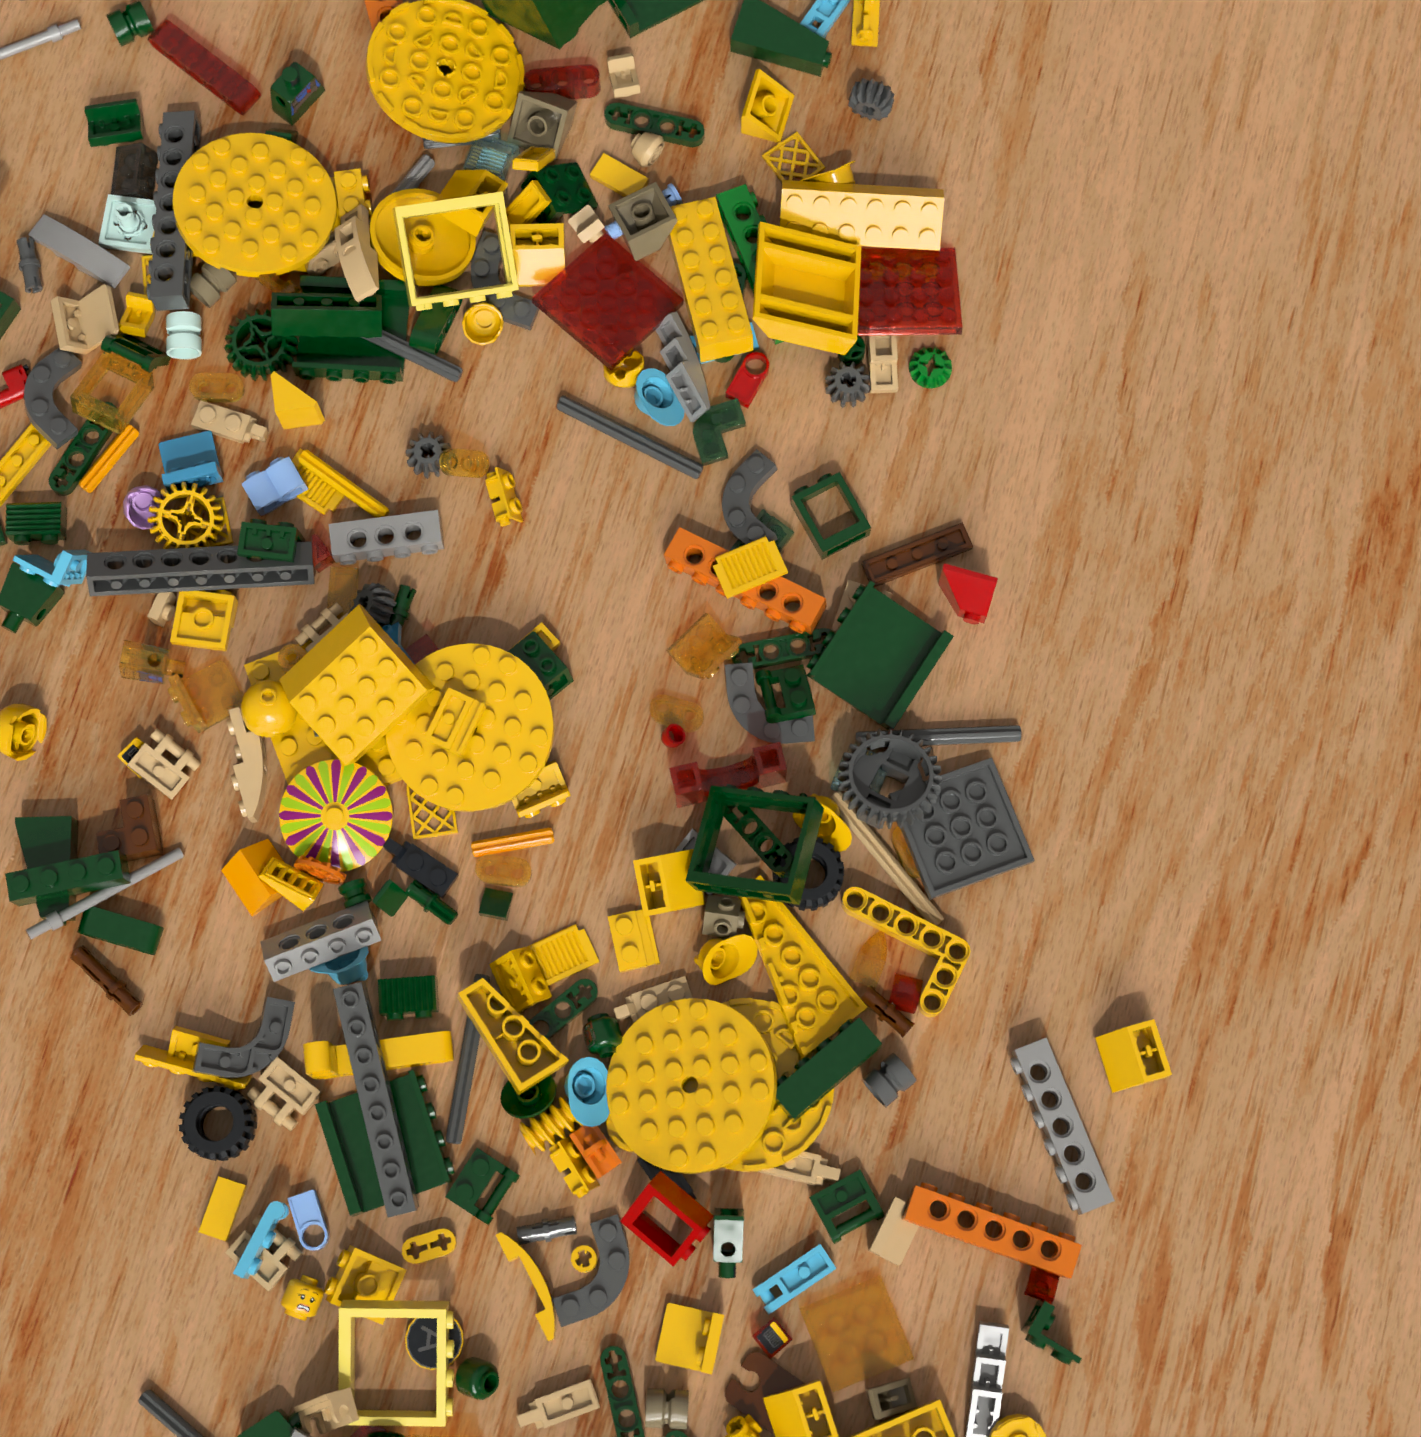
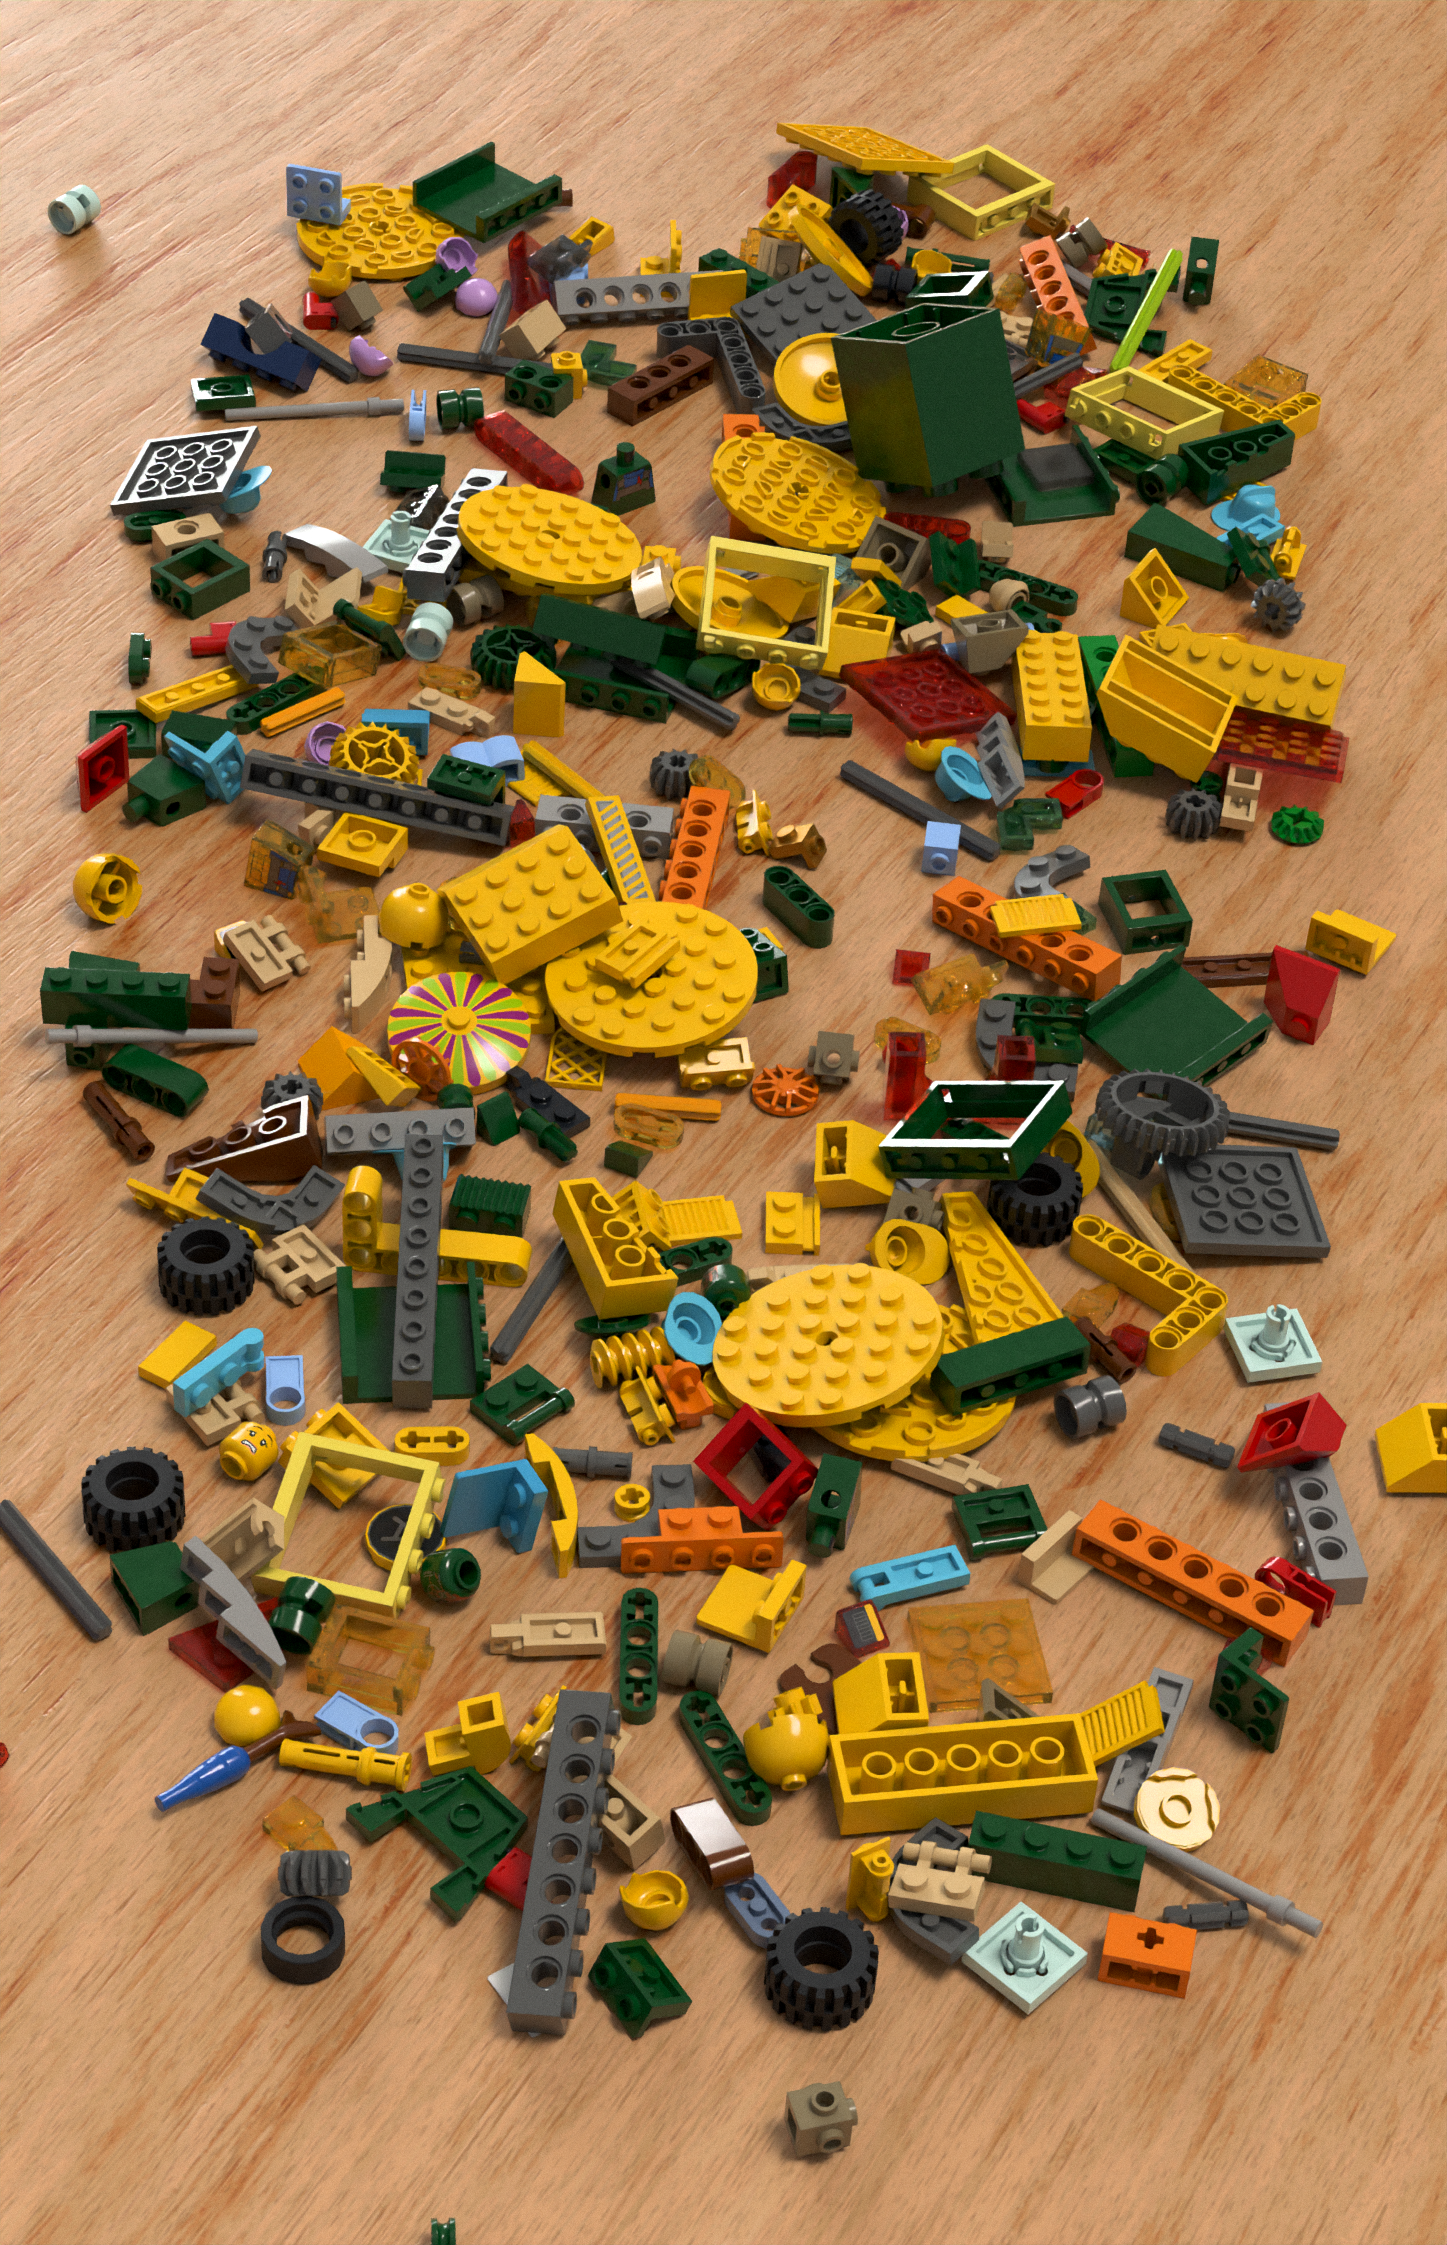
camera: 10 degrees right, 35 degrees down
(96, 42) = (417, 418): none -> light blue piece
(210, 1372) = (133, 1499): none -> black tyre
(221, 918) = (291, 1087): none -> dark grey gear
(223, 982) = (269, 1149): none -> reddish brown wedge
(408, 577) = (619, 849): none -> tile
(466, 490) = (696, 847): none -> orange brick
(510, 1311) = (497, 1496): none -> dark azure bracket
(528, 352) = (821, 723): none -> dark green axle
(544, 510) = (799, 840): none -> pearl gold bracket
(565, 600) = (798, 907): none -> dark green beam
(595, 126) = (954, 565): none -> dark green bracket
(596, 796) = (785, 1090): none -> orange wheel
(626, 761) = (833, 1043): none -> dark tan brick
(640, 1288) = (700, 1541): none -> orange bracket
(657, 486) = (941, 848): none -> light blue brick
(662, 628) = (908, 964): none -> clear red slope
(670, 168) = (1037, 617): none -> dark green plate
(843, 46) = (1253, 556): none -> dark green plate
(965, 1387) = (1122, 1722): none -> yellow window
(970, 1087) = (1196, 1445): none -> dark grey axle
(995, 500) = (1348, 940): none -> yellow bracket
(1013, 952) = (1274, 1337): none -> light aqua plate
(1040, 1095) = (1293, 1435): none -> red slope
(1063, 1215) = (1299, 1587): none -> red piece

